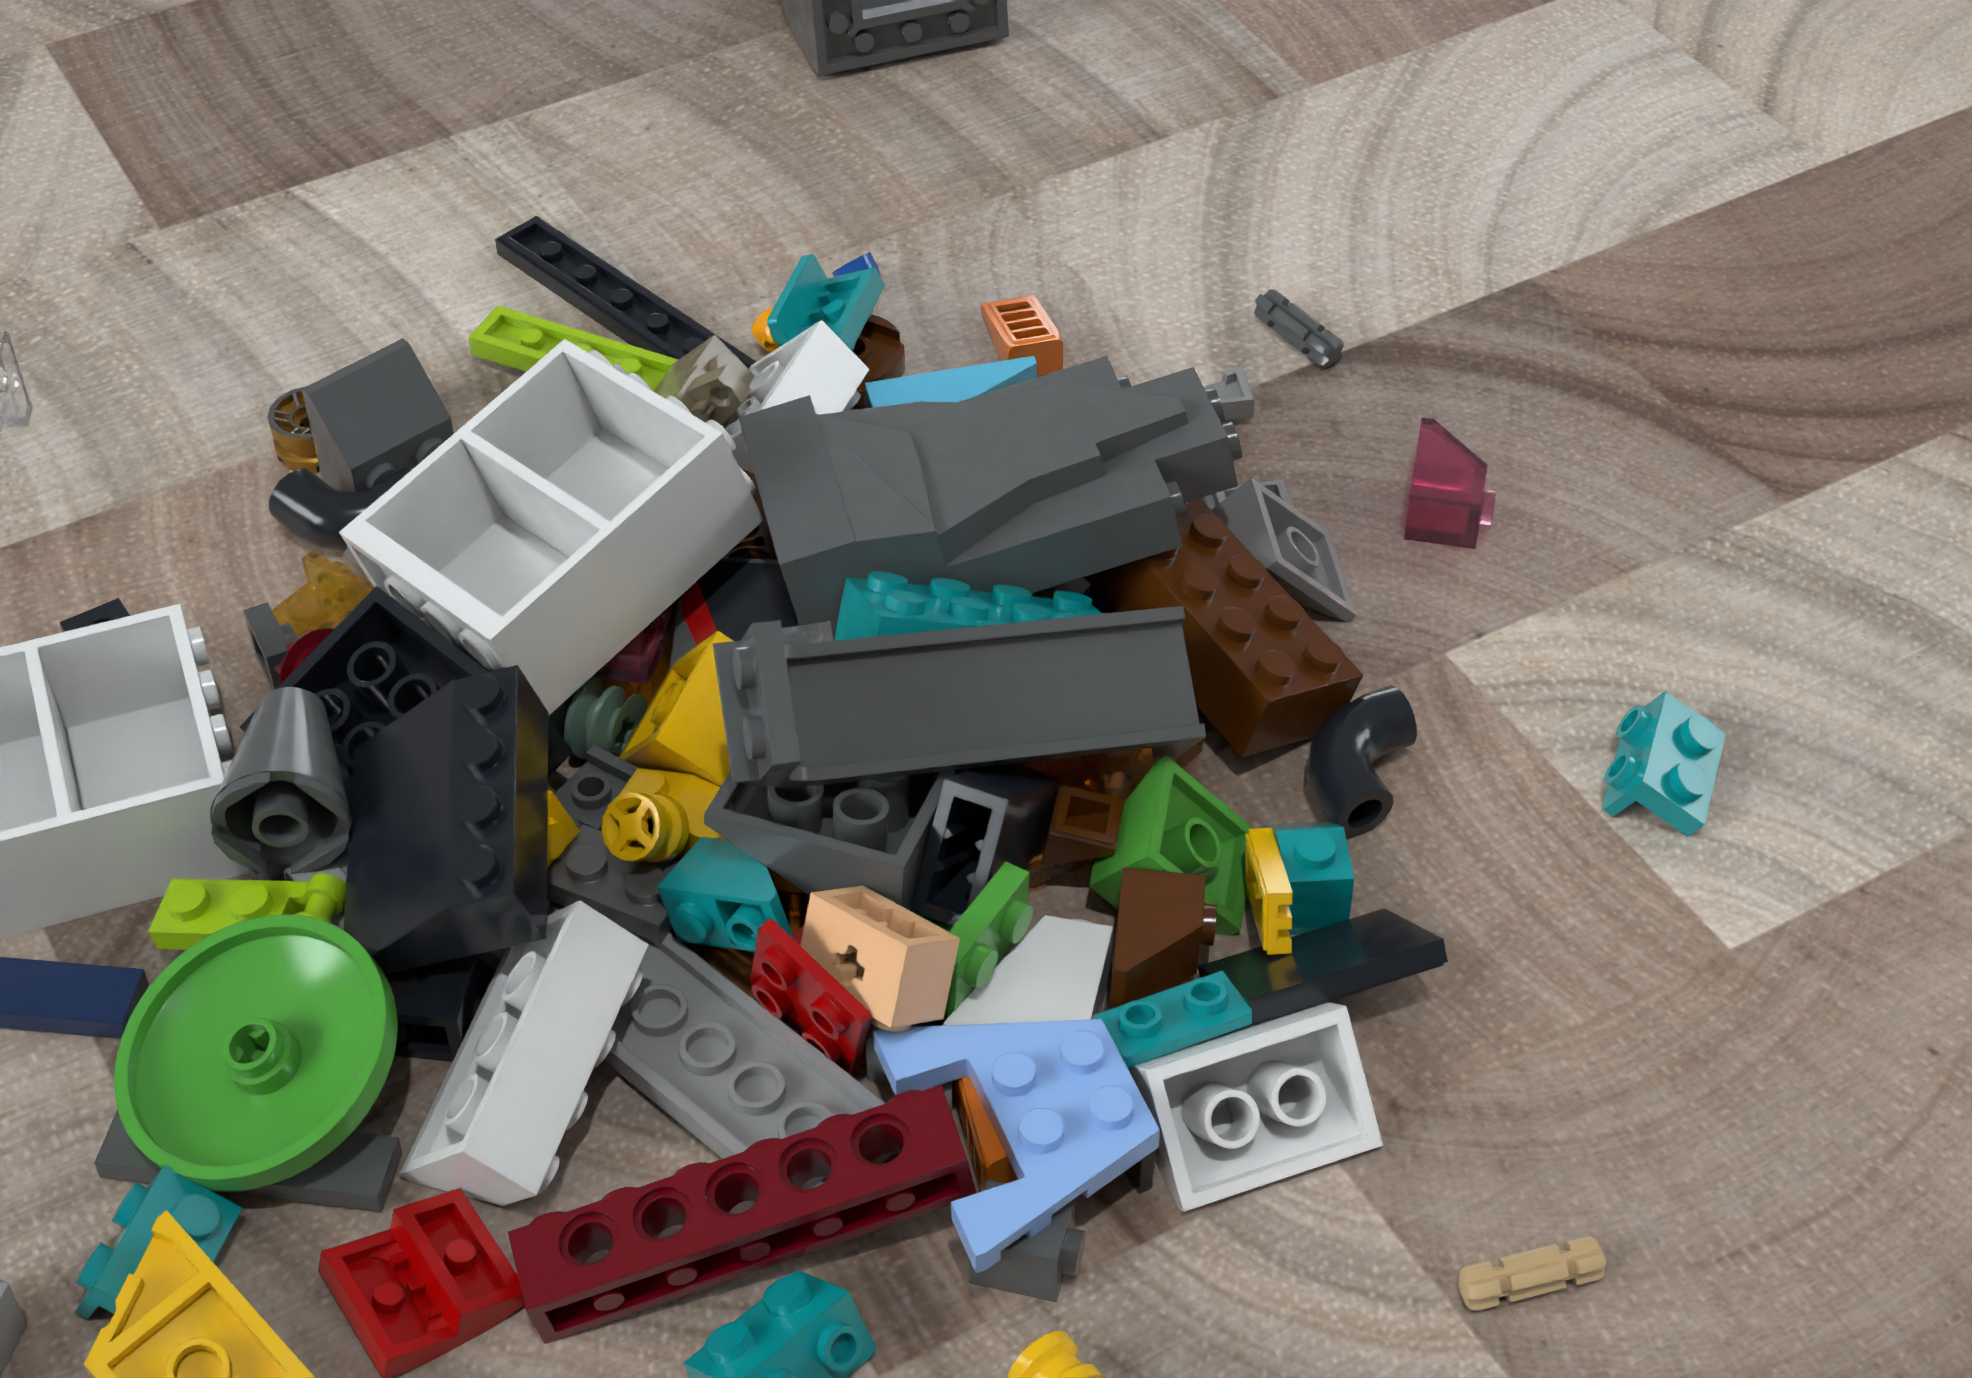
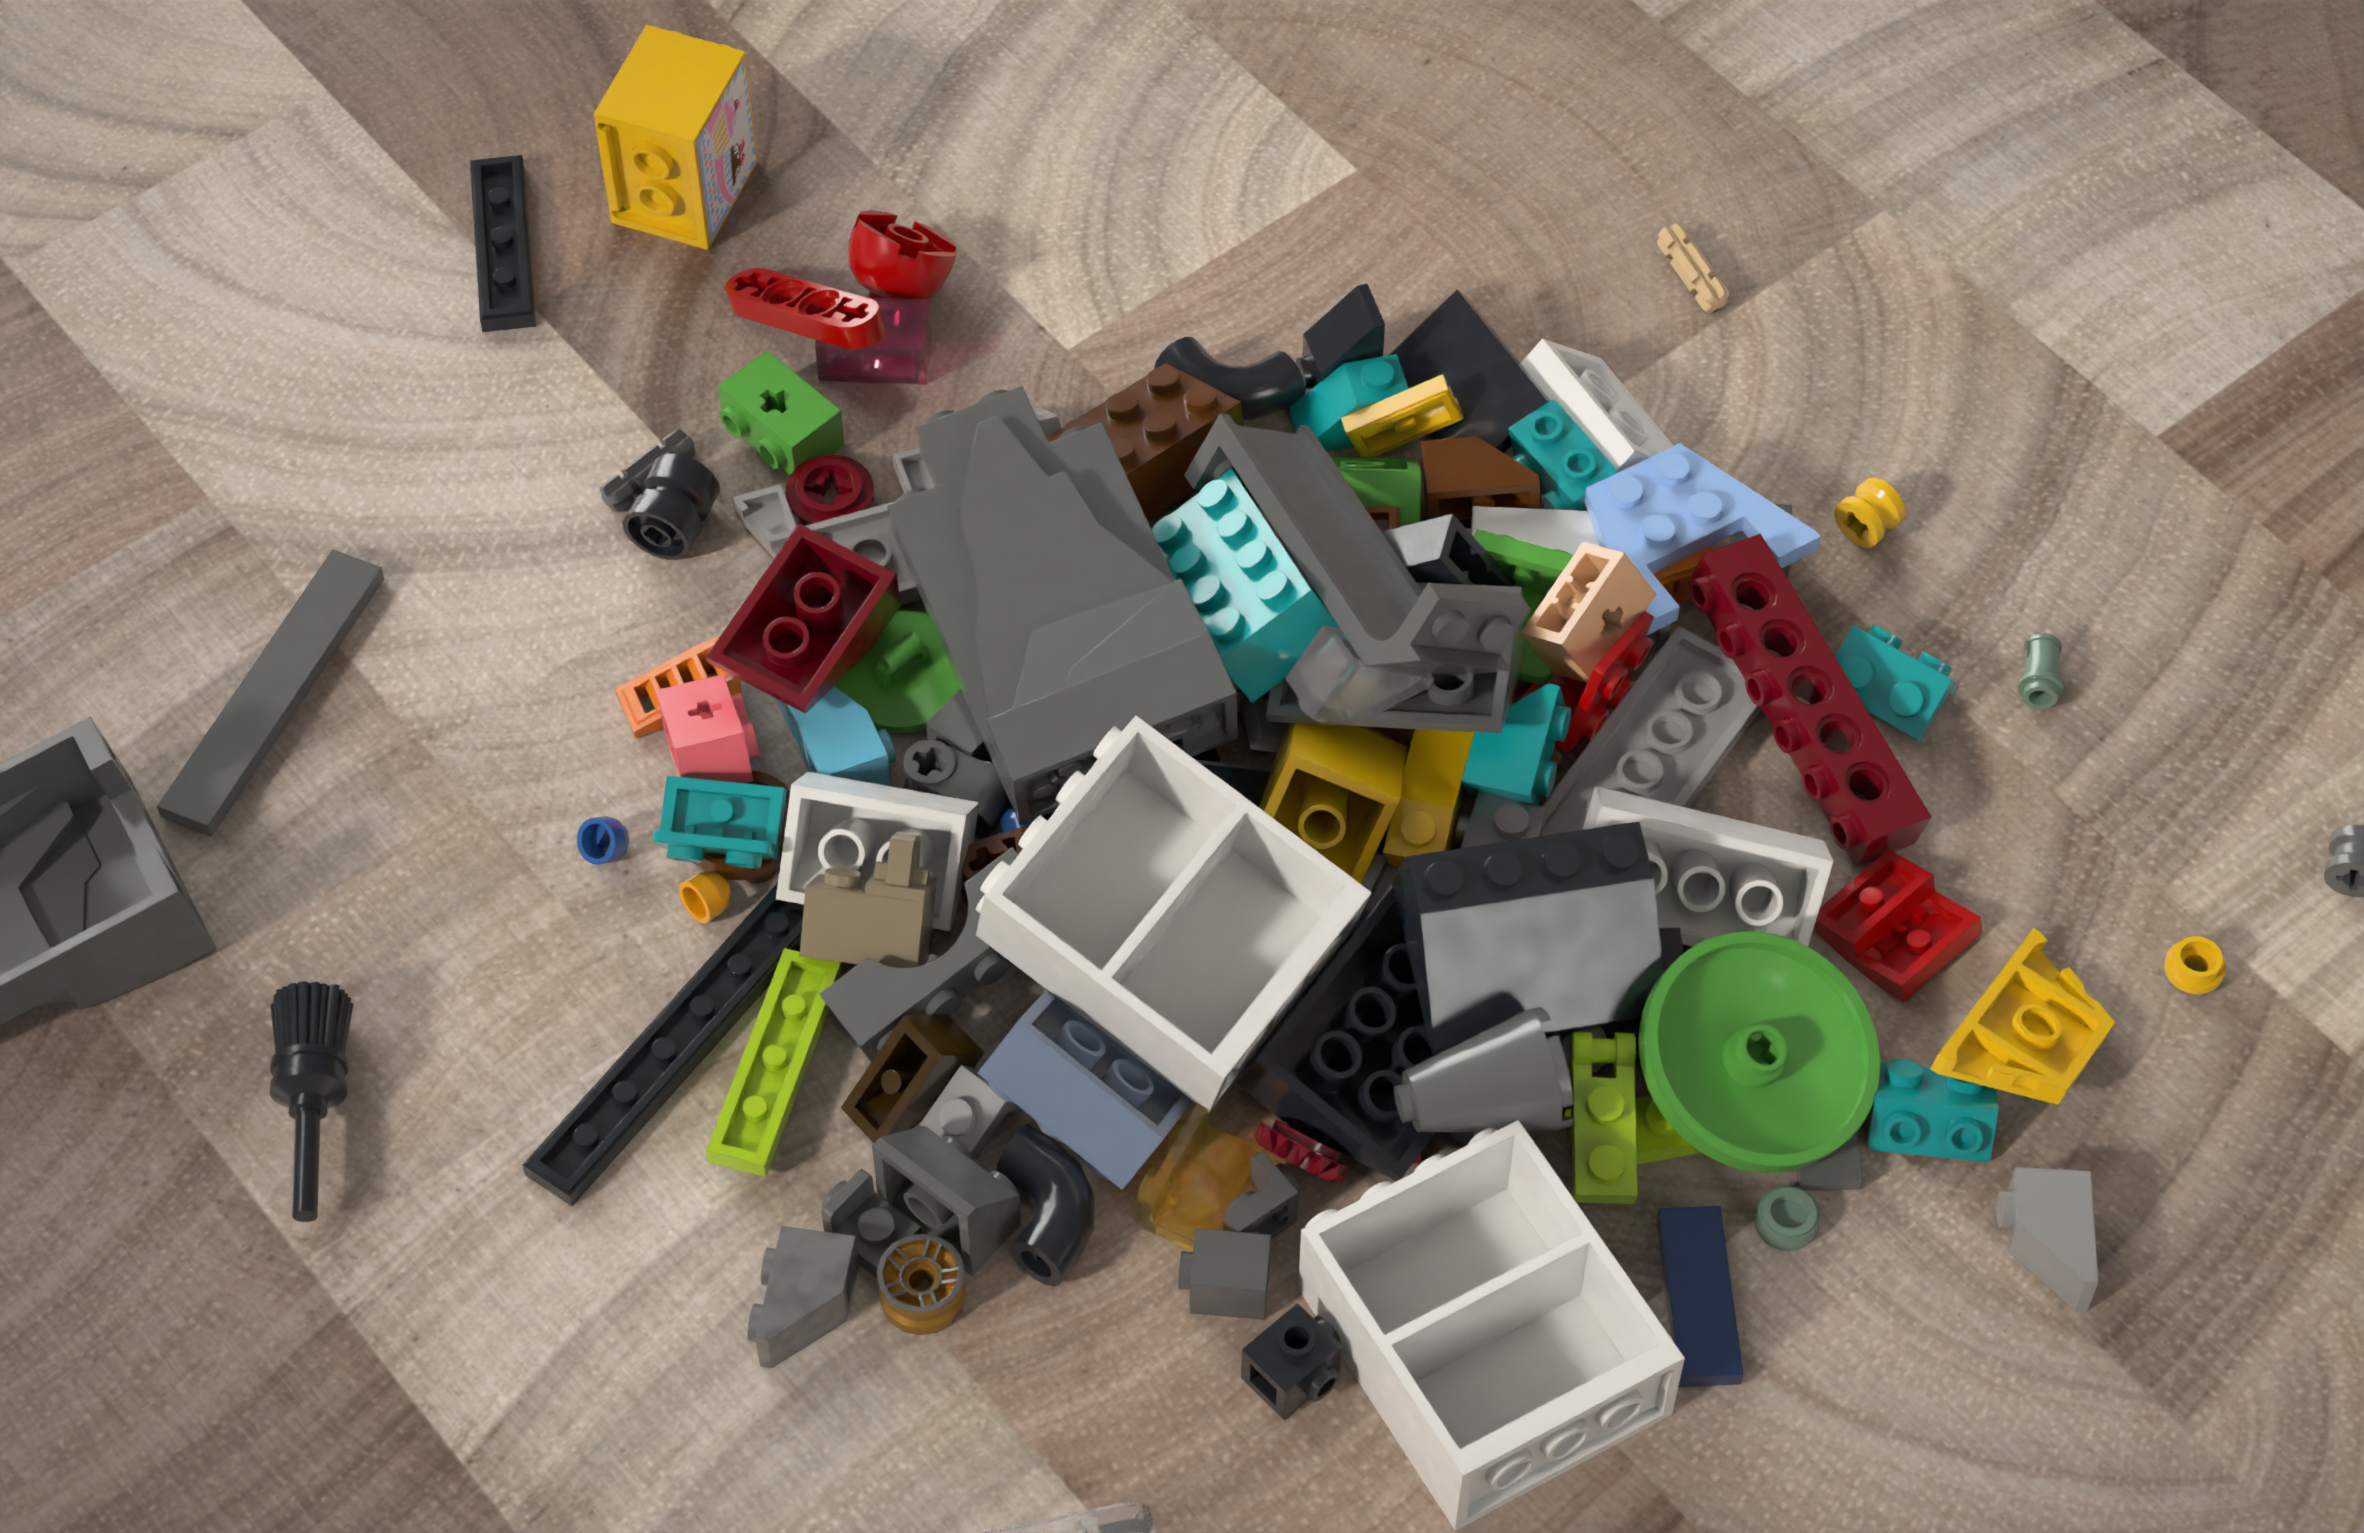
camera: 100 degrees left, 10 degrees up
(85, 1095) = (1787, 1218): none -> sand green tile
(218, 607) = (1227, 1273): none -> dark grey brick
(328, 342) = (806, 1294): none -> flat silver slope
(627, 829) = (1475, 809): yellow wheel -> none
(659, 101) = (309, 1073): none -> black piece
(940, 318) = (708, 730): none -> coral brick
(1020, 340) = (807, 620): none -> dark red slope
(1082, 107) = (270, 693): none -> dark grey tile
(1241, 326) = (671, 506): none -> black wheel
(1274, 442) = (813, 478): none -> dark red gear
(1349, 410) = (779, 414): none -> bright green brick
(1386, 858) = (1343, 335): none -> black slope
(1474, 414) = (806, 308): none -> red beam
(1555, 490) = (898, 259): none -> red cylinder
(1613, 254) = (502, 243): none -> black tile
(1665, 763) = (1189, 199): teal bracket -> none
(1707, 318) = (676, 136): none -> yellow container

